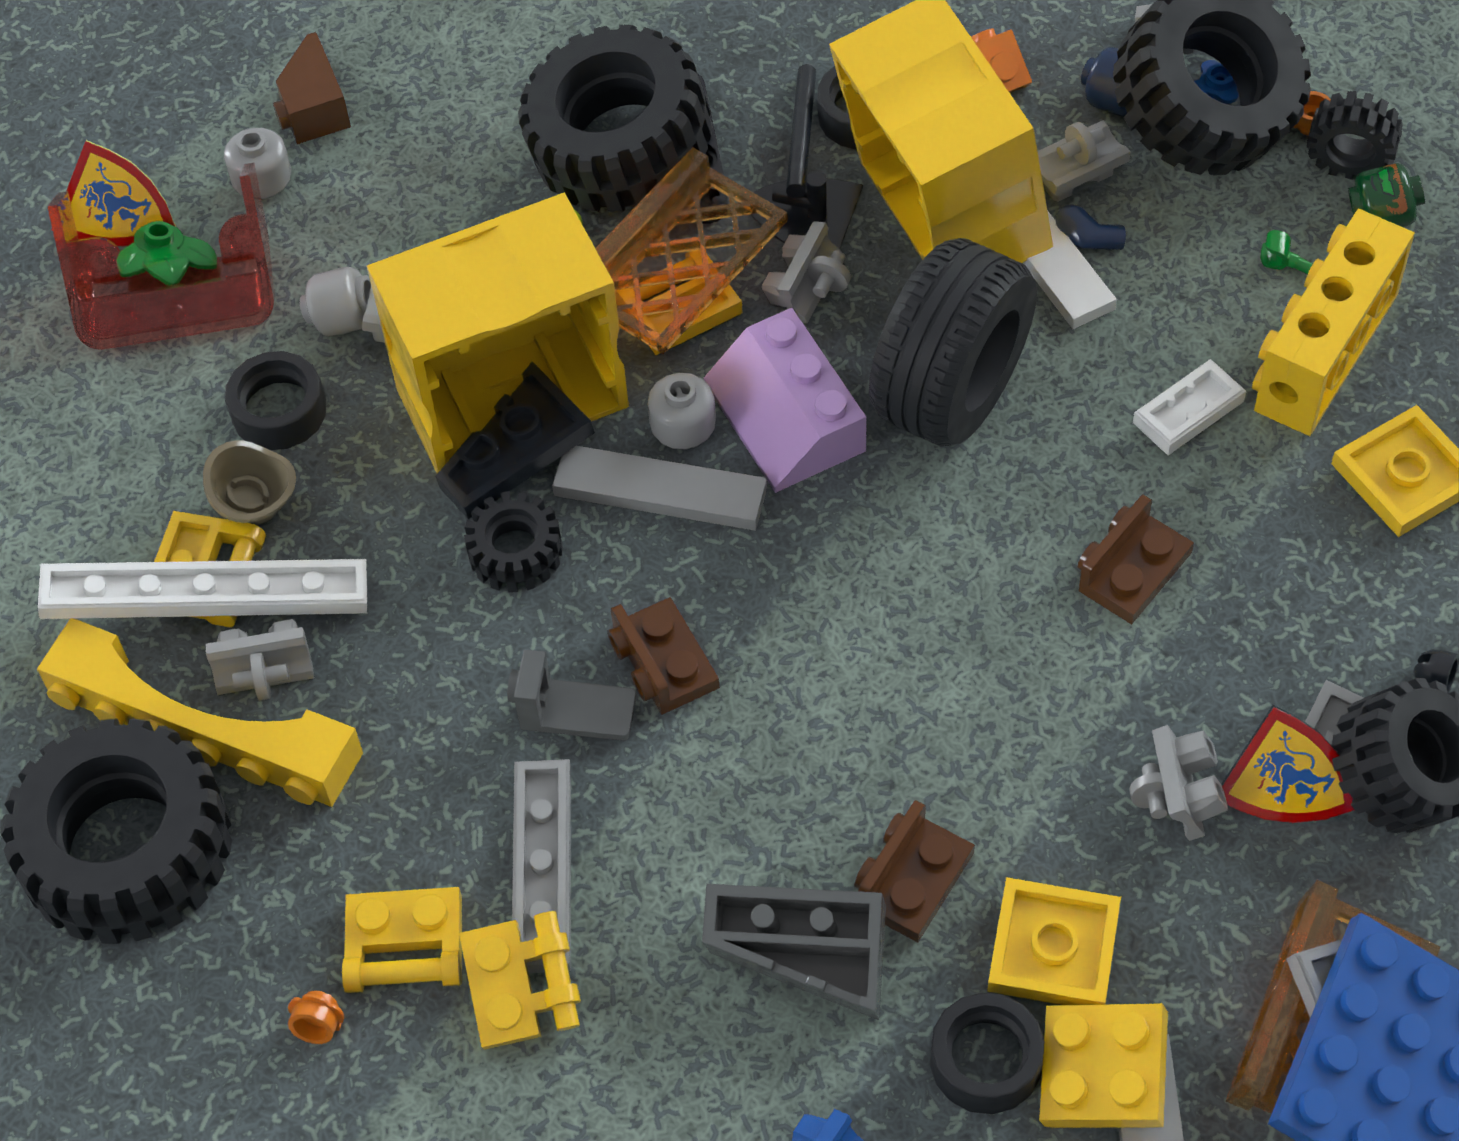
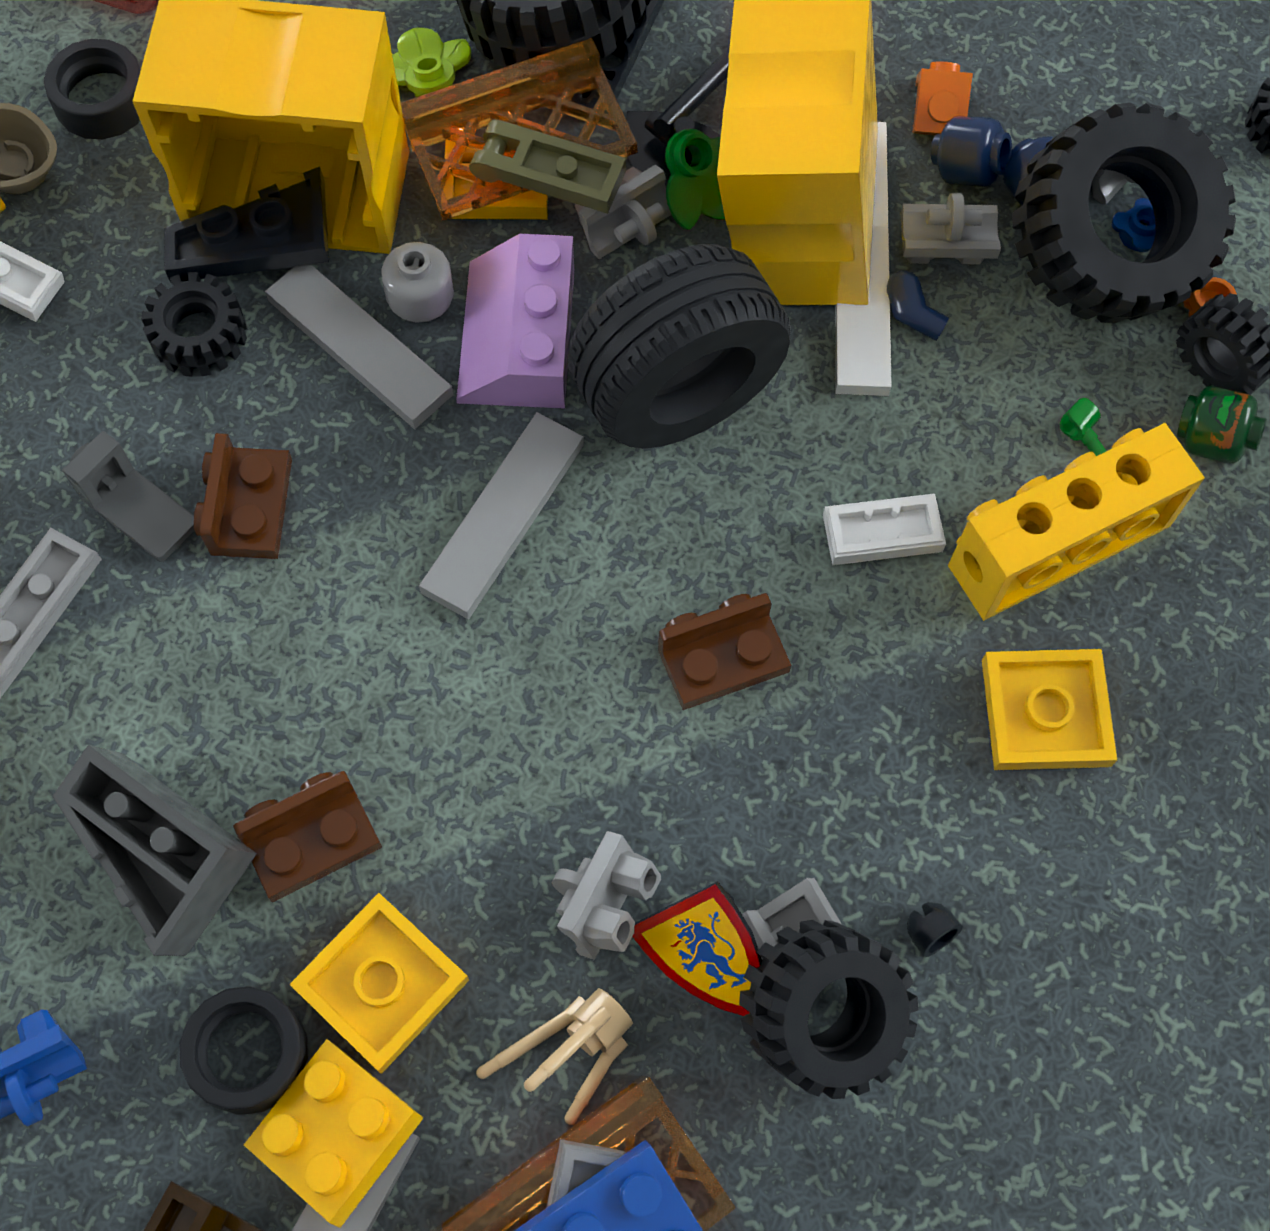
camera: 25 degrees right, 10 degrees up
(732, 262) = (549, 165): none -> olive plate
(853, 217) = (695, 187): none -> green plate
(881, 556) = (501, 516): none -> light grey tile
(1051, 90) = (971, 151): none -> head
(1243, 884) = (595, 1027): none -> tan plant

